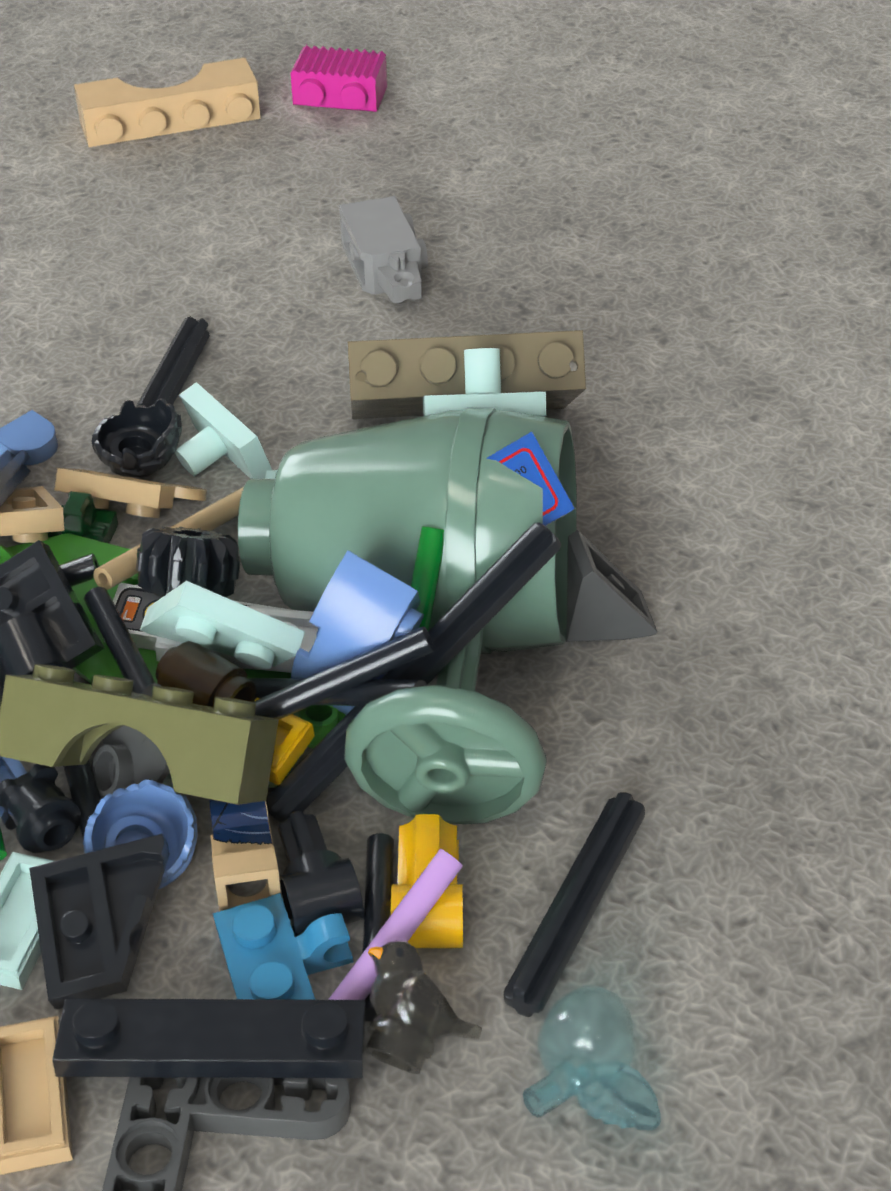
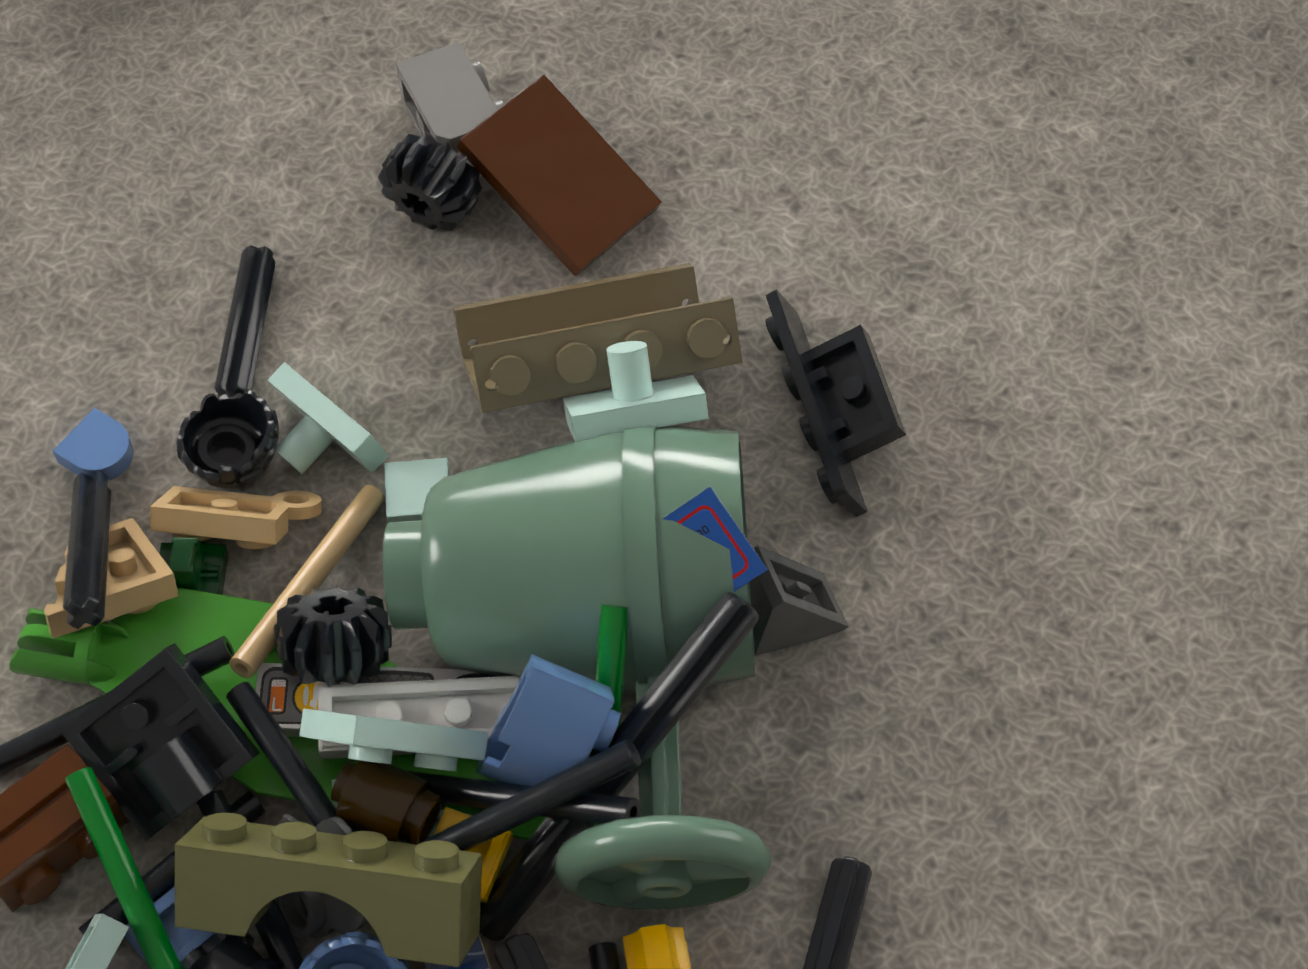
camera: 10 degrees left, 15 degrees up
(350, 284) = (430, 182): none -> black gear
(458, 283) = (559, 175): none -> reddish brown tile
(679, 462) = (842, 396): none -> black bracket

